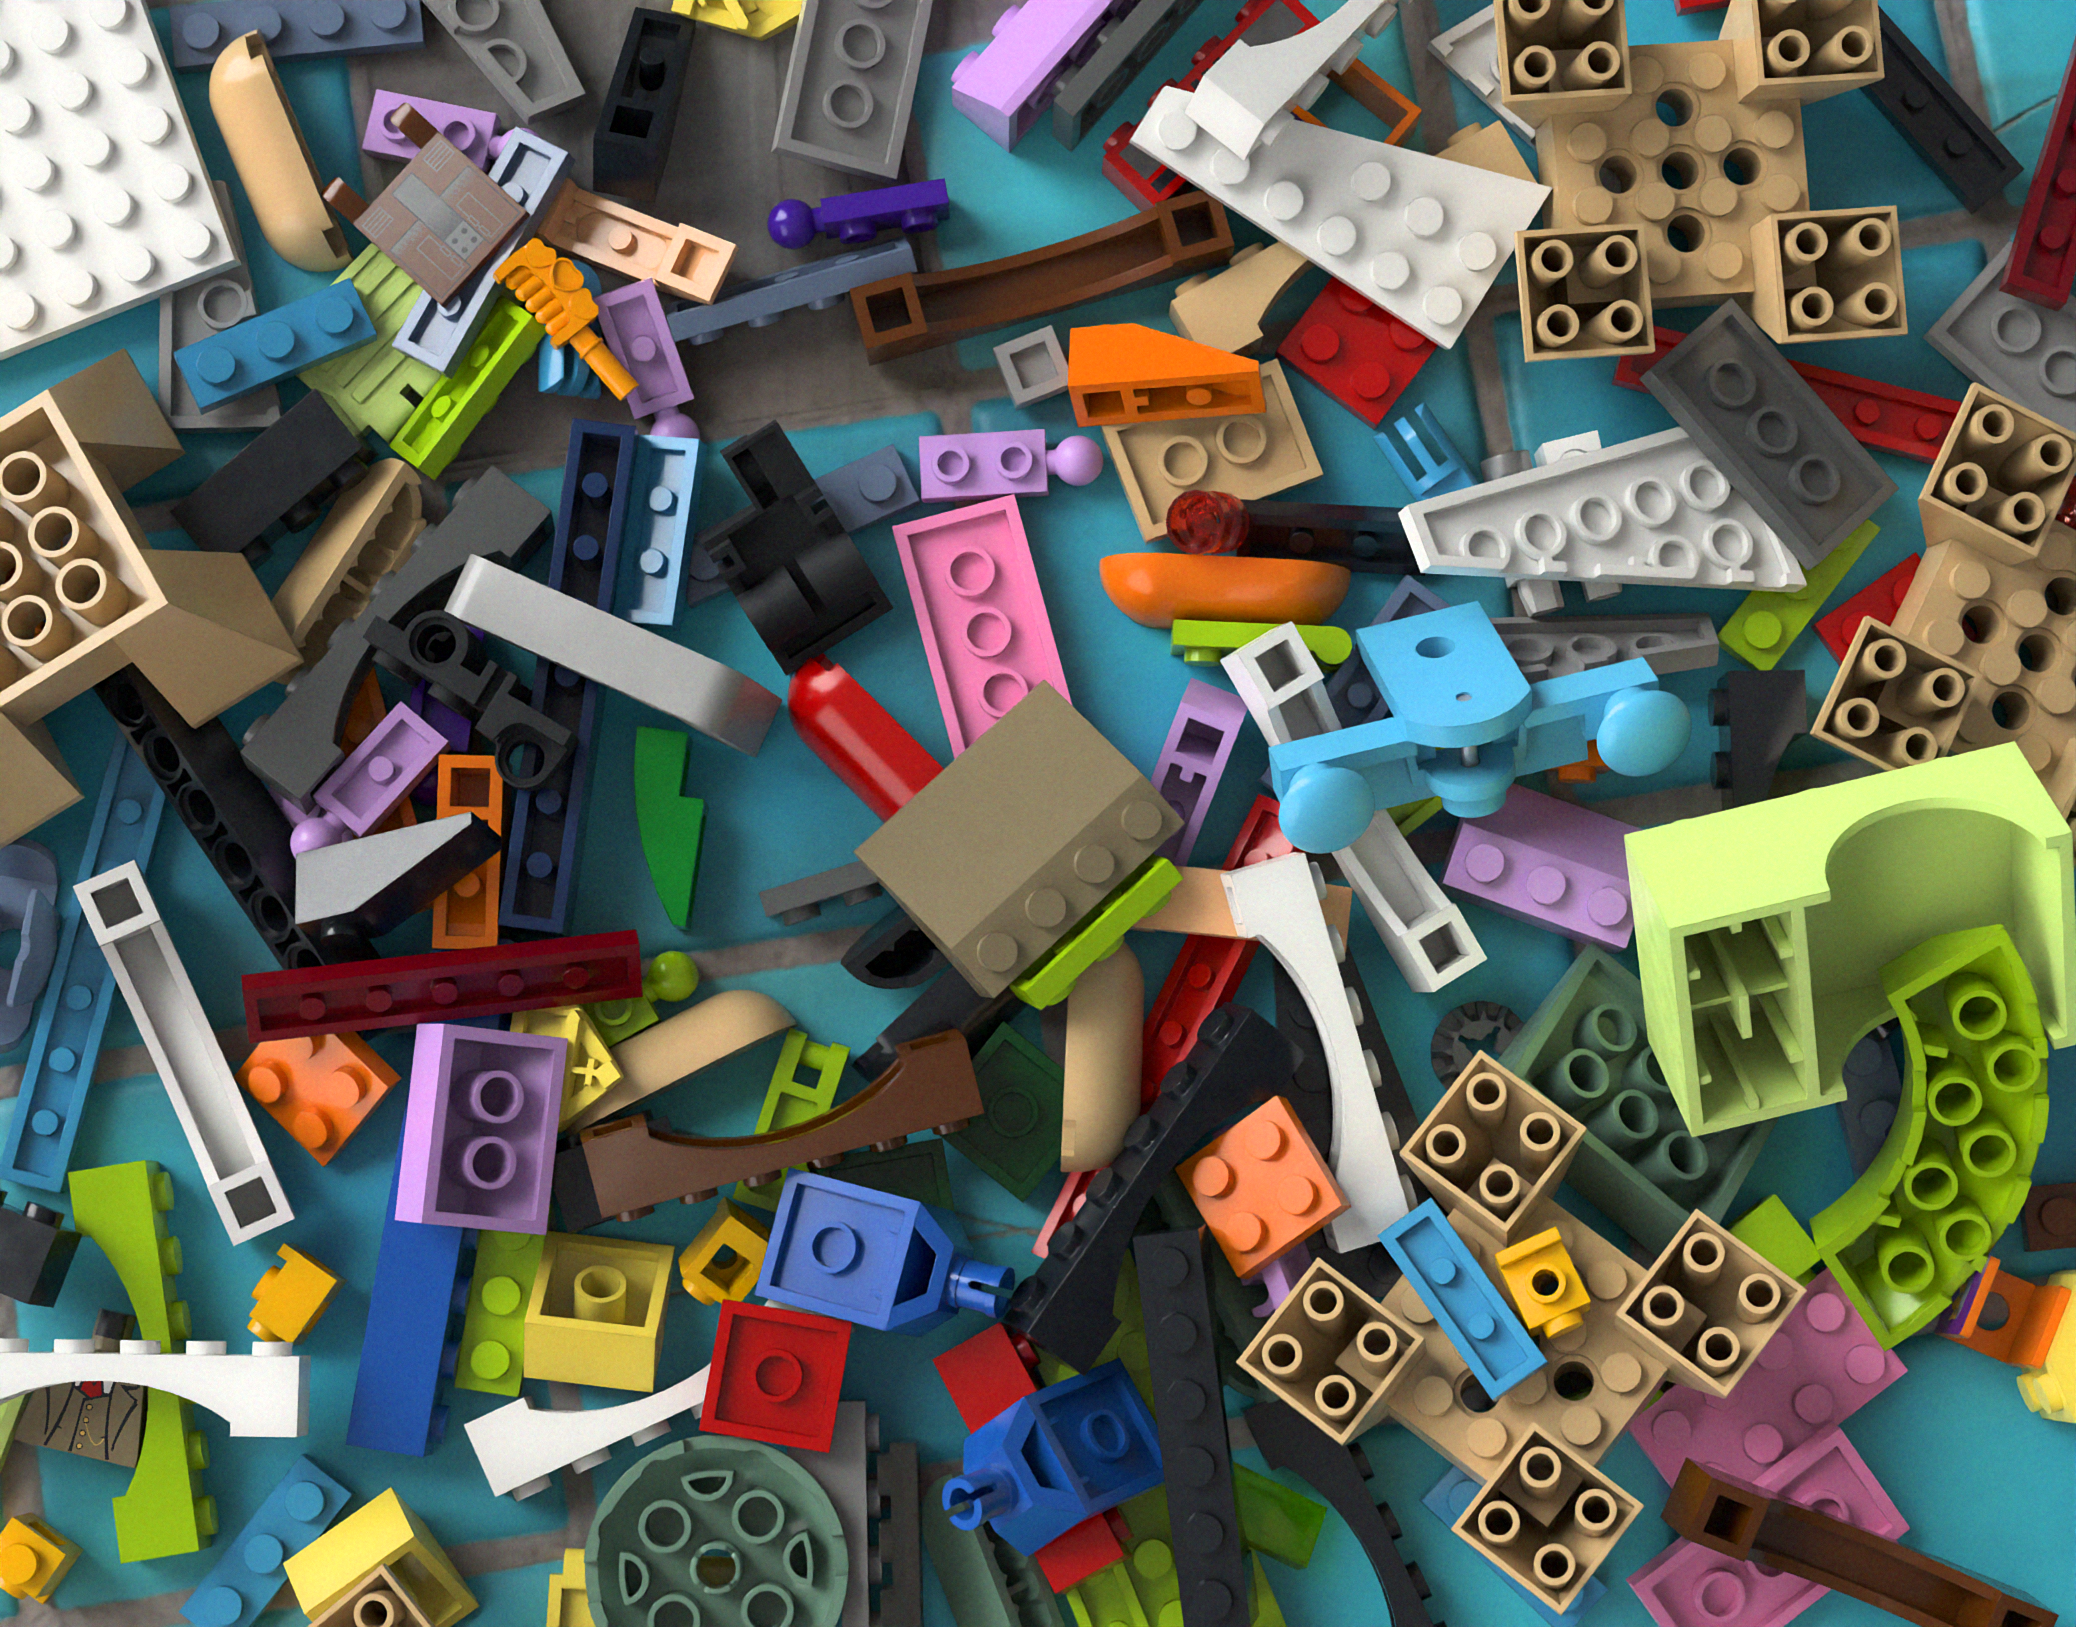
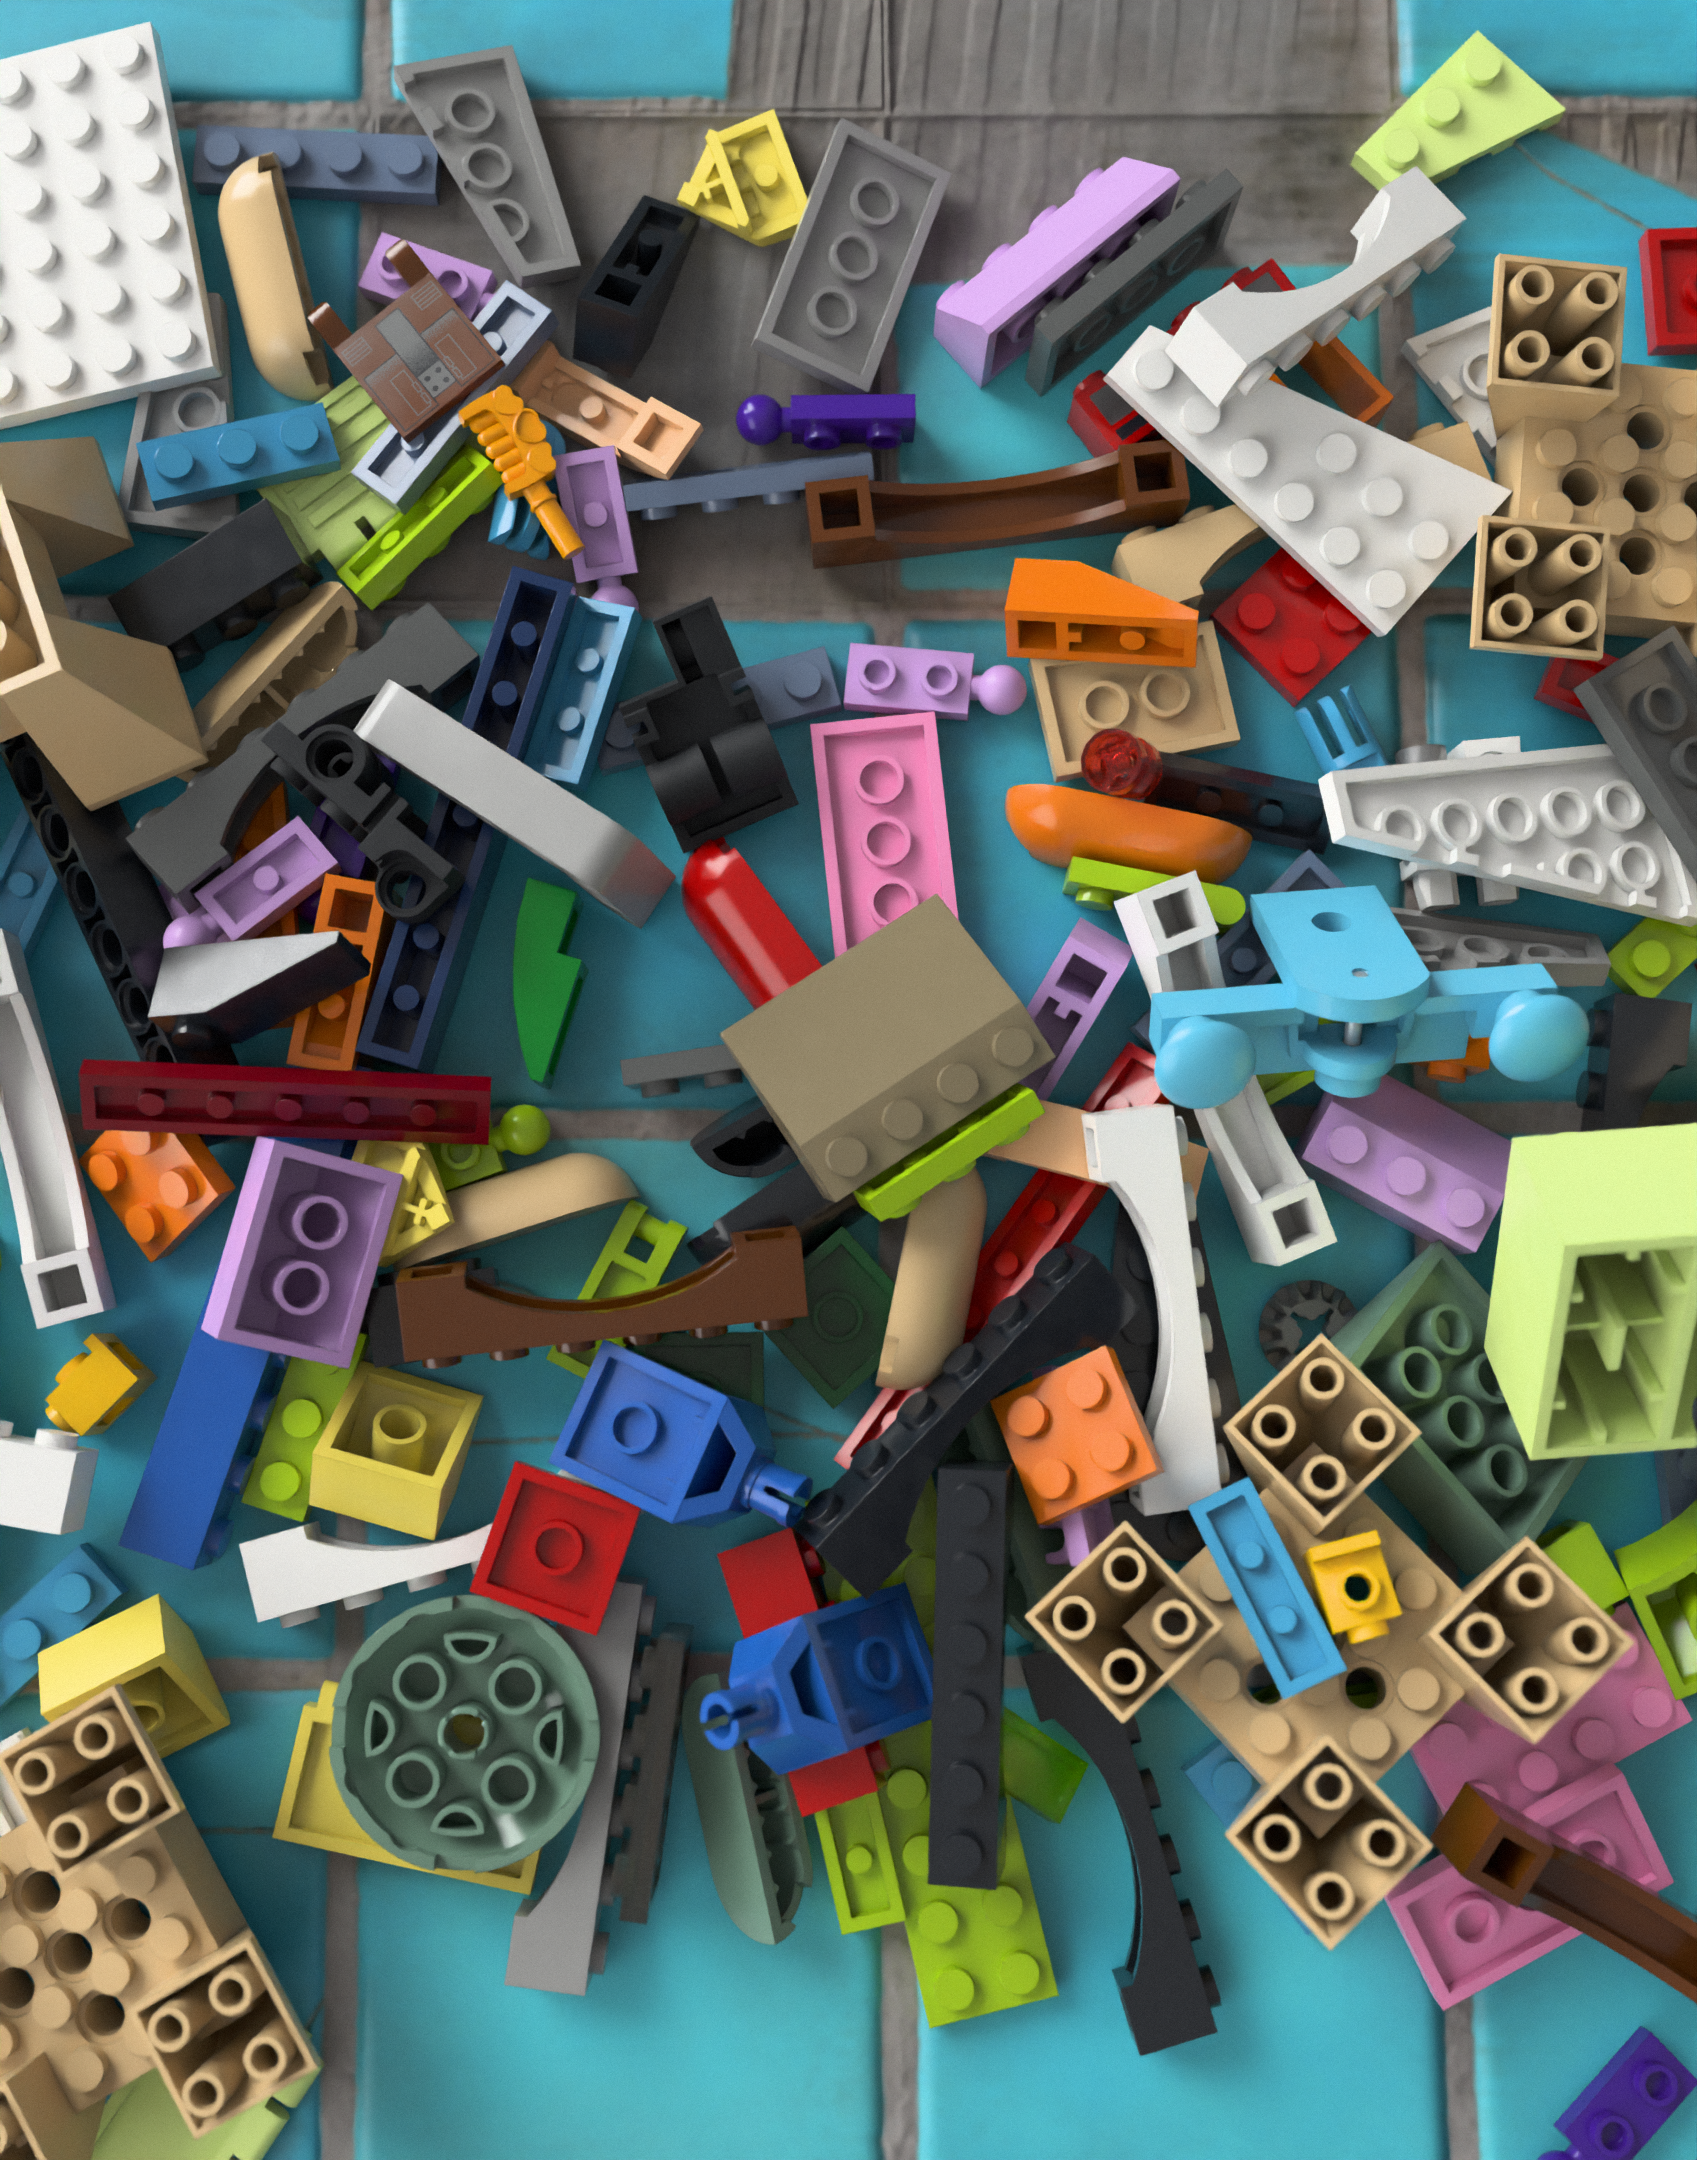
camera: 10 degrees right, 0 degrees up
(730, 1279) = (523, 1438): yellow brick -> none
(1032, 367) = (972, 593): light grey plate -> none

